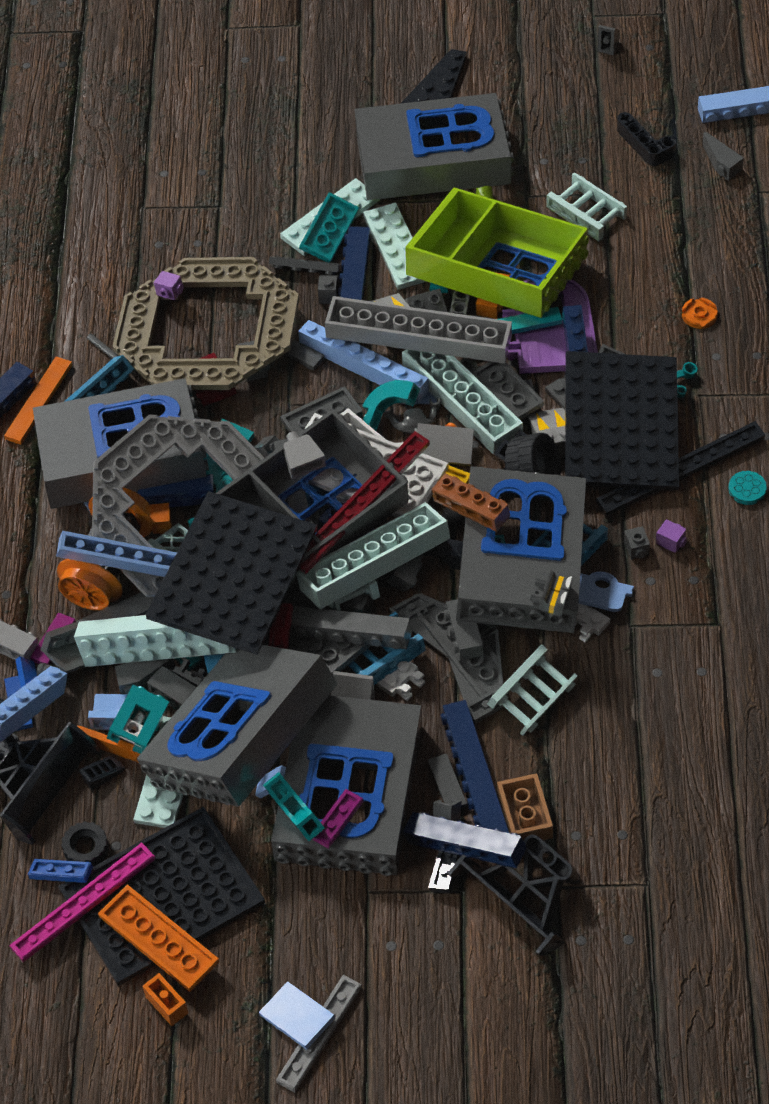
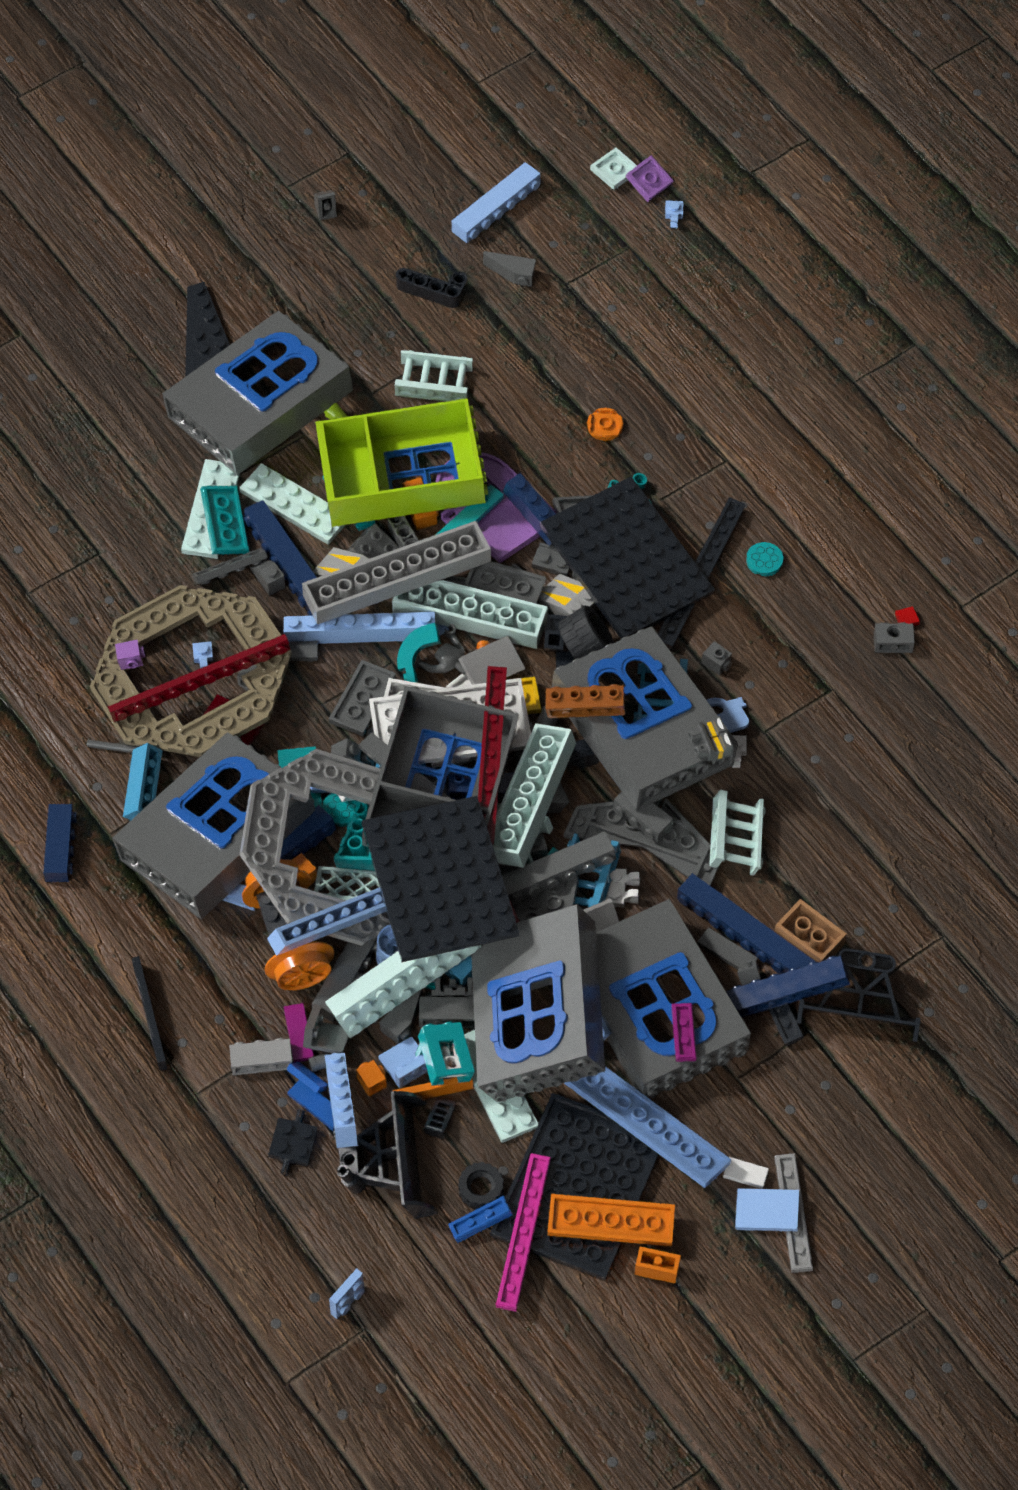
camera: 40 degrees left, 5 degrees up
(40, 396) = (93, 829): orange tile -> none
(75, 707) = (371, 1077): none -> orange brick
(202, 328) = (199, 678): none -> dark red plate
(229, 318) = (202, 653): none -> light blue plate
(257, 879) = (652, 1126): none -> medium blue plate
(293, 806) = (649, 1046): teal arch -> none
(302, 455) = (416, 741): light grey torso -> none
(307, 973) = (746, 1173): none -> white tile
(671, 536) = (740, 636): medium lavender brick -> none

